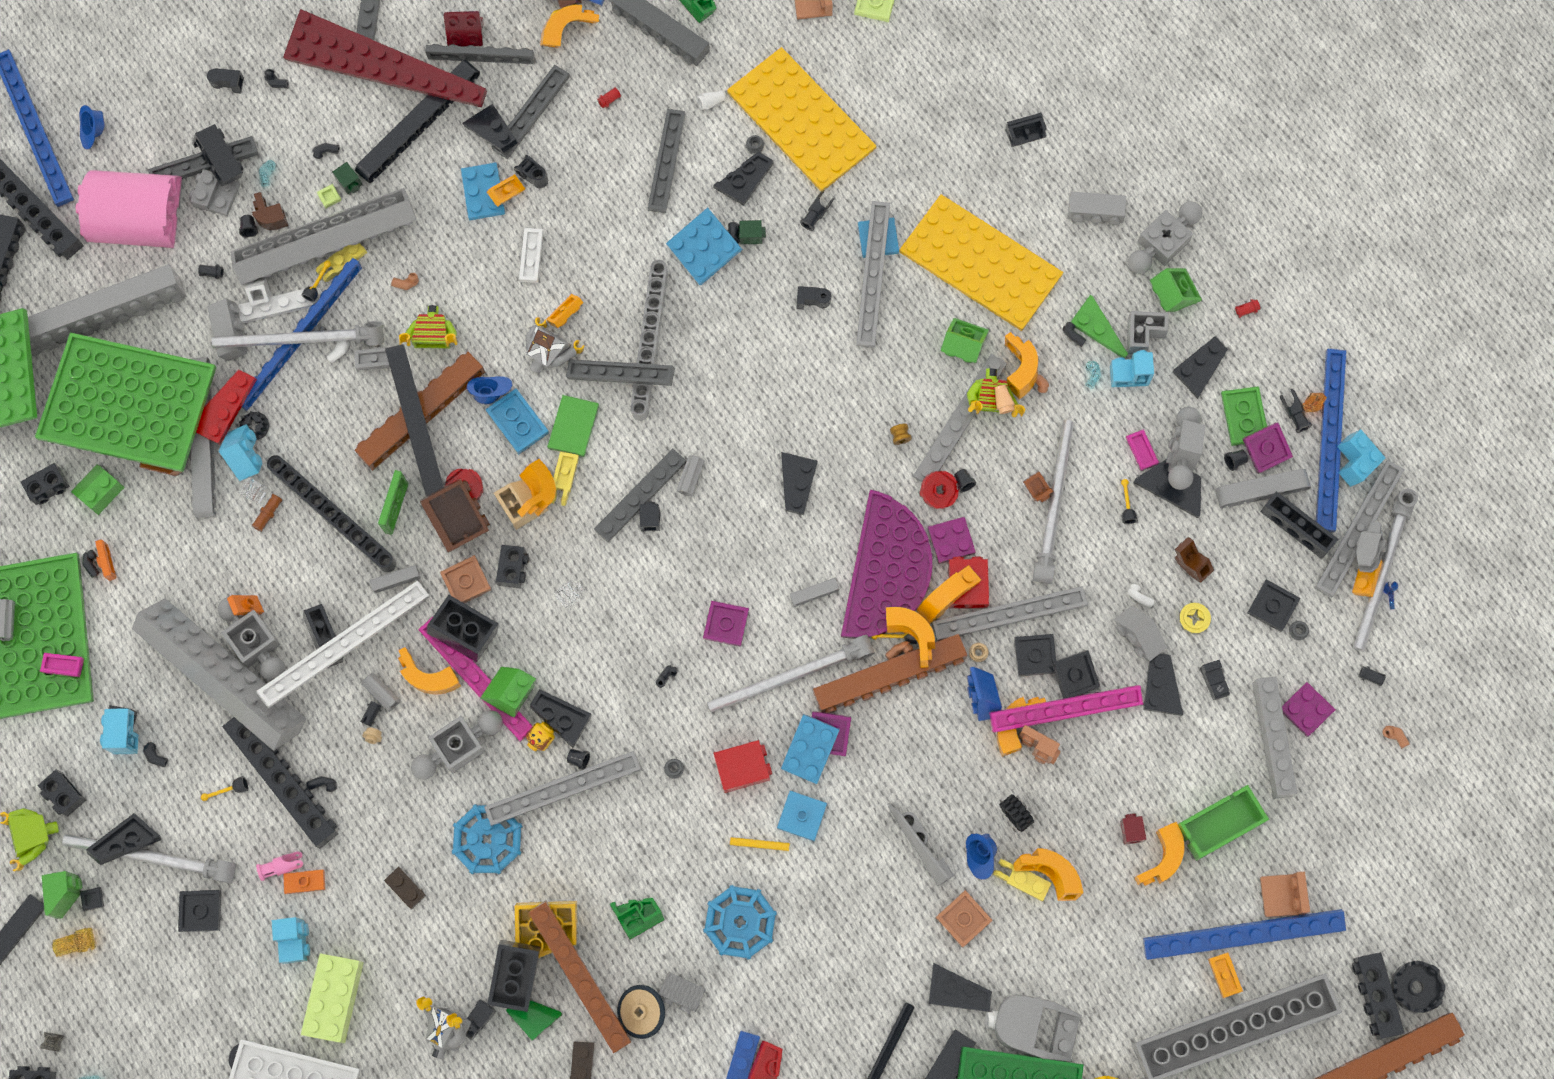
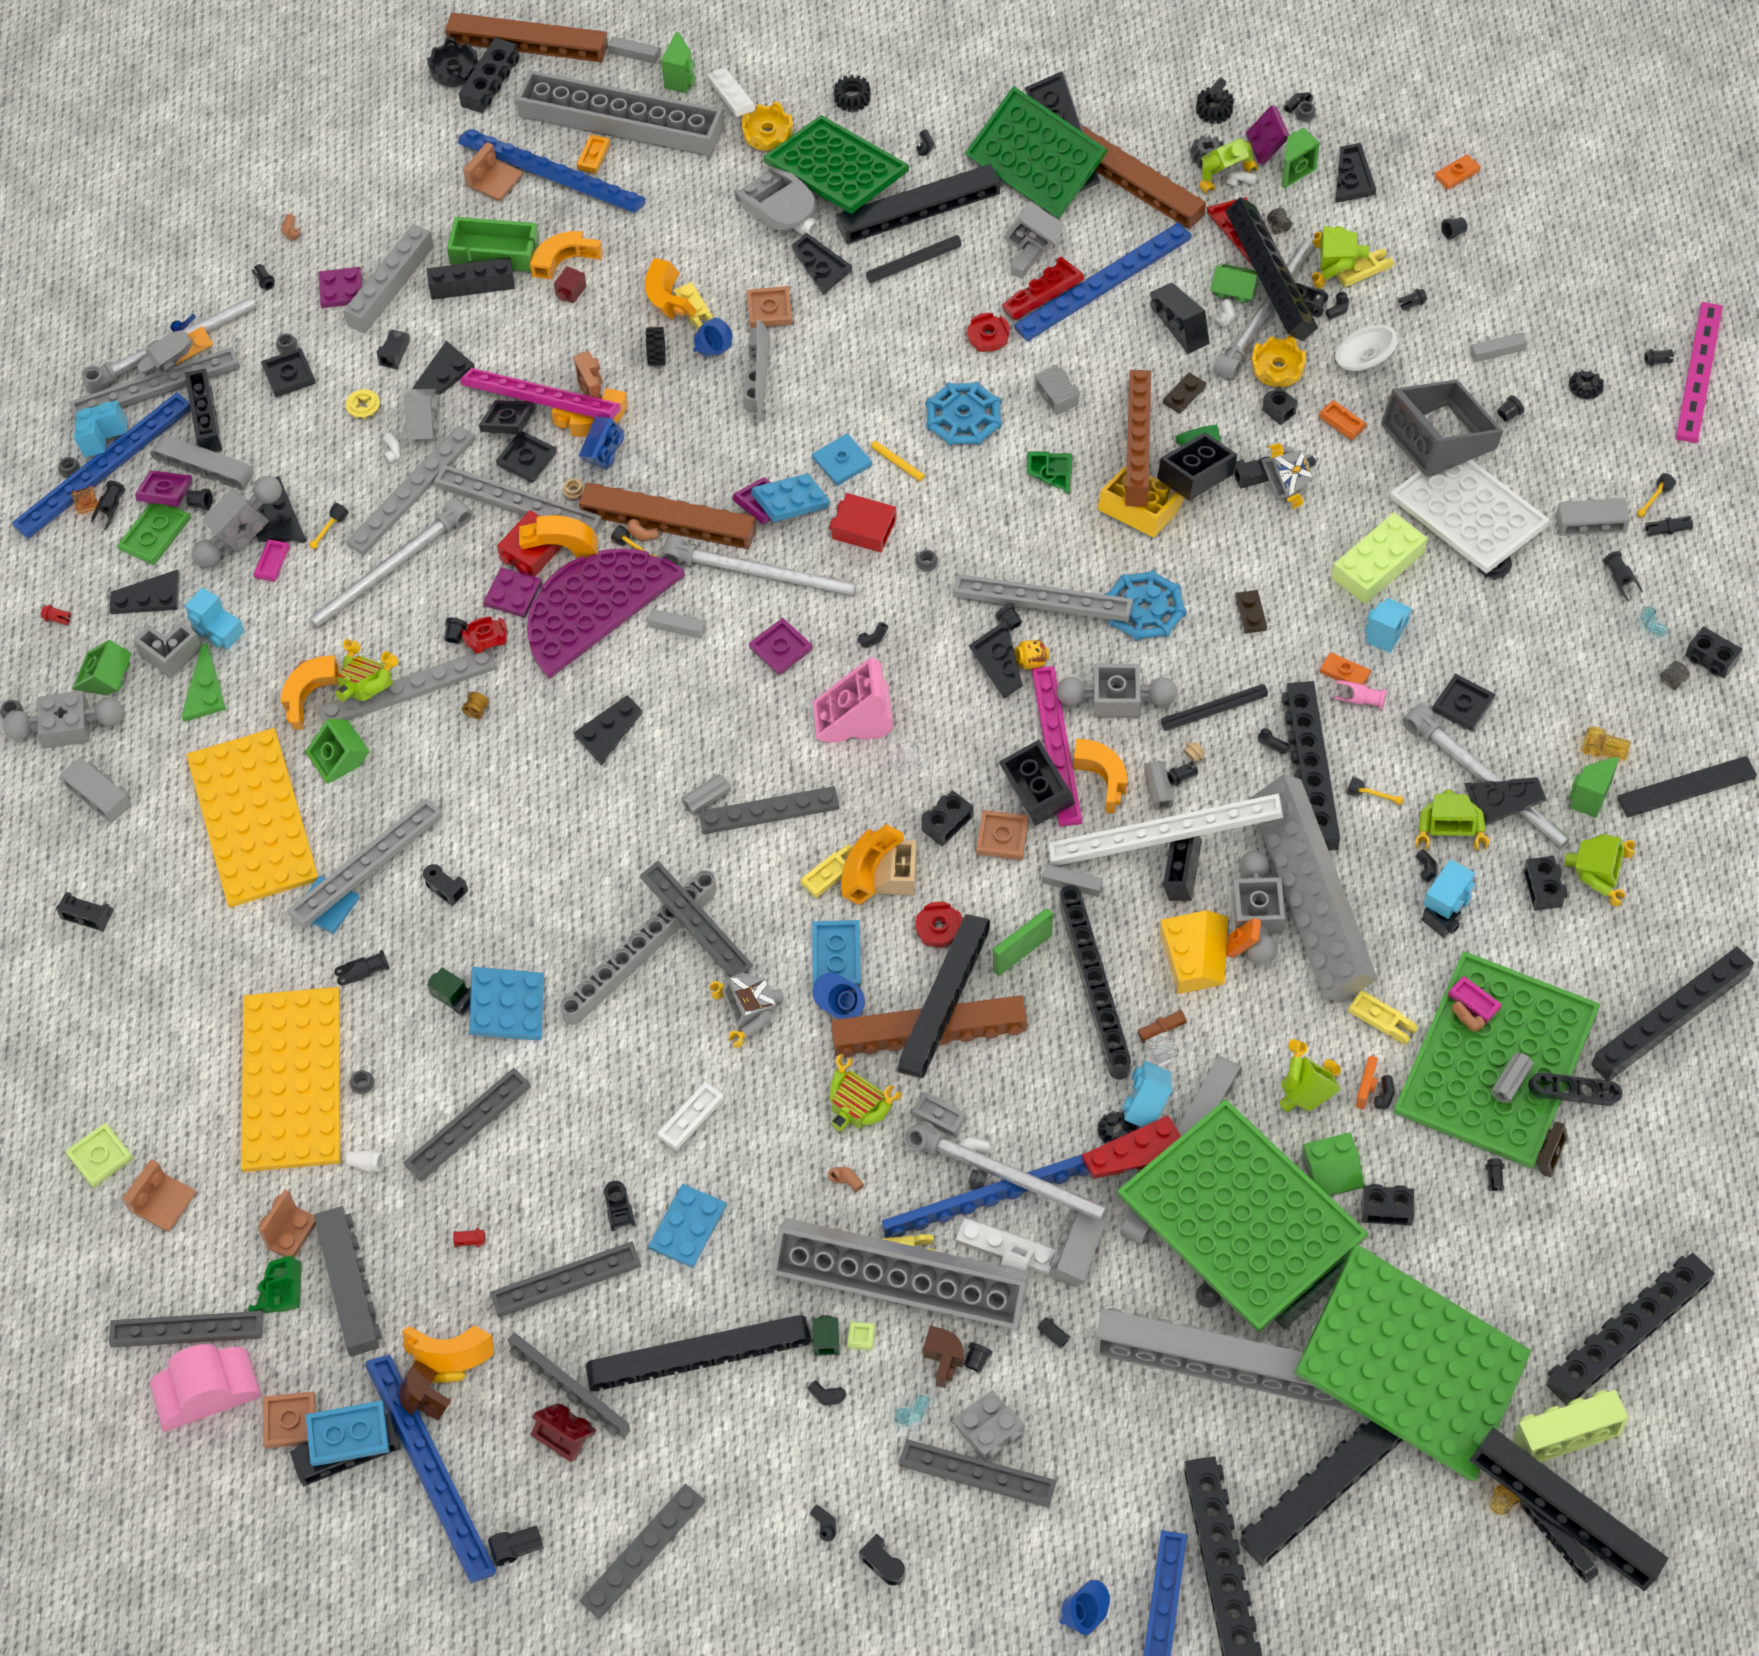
camera: 145 degrees left, 15 degrees down
(53, 644) = (1466, 1018): none -> nougat arm
(92, 899) = (1565, 775): black tile -> none
(118, 615) = (1381, 1016): none -> light yellow hinge
(129, 208) = (1095, 1465): bright pink cylinder -> none
(136, 528) = (1306, 1081): none -> lime torso
(154, 801) = (1452, 816): none -> lime torso
(218, 155) = (955, 1447): black wedge -> none
(276, 581) = (1196, 949): none -> yellow wedge
(310, 293) = (957, 1221): hinge -> none
(342, 51) = (724, 1501): dark red wing -> none
(381, 785) = (1214, 707): none -> black axle
(455, 514) = (967, 883): reddish brown container -> none
(492, 128) = (623, 1283): black wing -> none
(506, 190) = (663, 1198): light orange plate -> none
(509, 690) = (1031, 706): bright green slope -> none
(564, 311) = (701, 1032): light orange plate -> none
(573, 425) = (783, 916): bright green tile -> none
(631, 600) = (855, 706): none -> bright pink brick
(649, 516) = (776, 779): black brick -> none
(653, 1008) = (1103, 395): tan wheel -> none
(721, 31) = (286, 1226): none -> nougat bracket
(744, 180) = (403, 1050): black wing -> none
(763, 1015) = (988, 342): none -> red plate
(912, 623) = (619, 539): light orange arch -> none
(1004, 400) = (357, 654): light nougat cone -> none
(1038, 487) = (394, 580): dark orange bracket -> none
(1069, 331) = (234, 690): black arm -> none
(1095, 373) = (250, 646): clear light blue arm -> none
(1095, 573) = (410, 490): none -> light grey plate
(1192, 561) = (320, 441): reddish brown brick -> none
(1210, 220) = (10, 705): none -> dark grey plate
(1212, 780) = (470, 278): none -> black brick
(1355, 417) = (66, 463): none -> dark grey plate

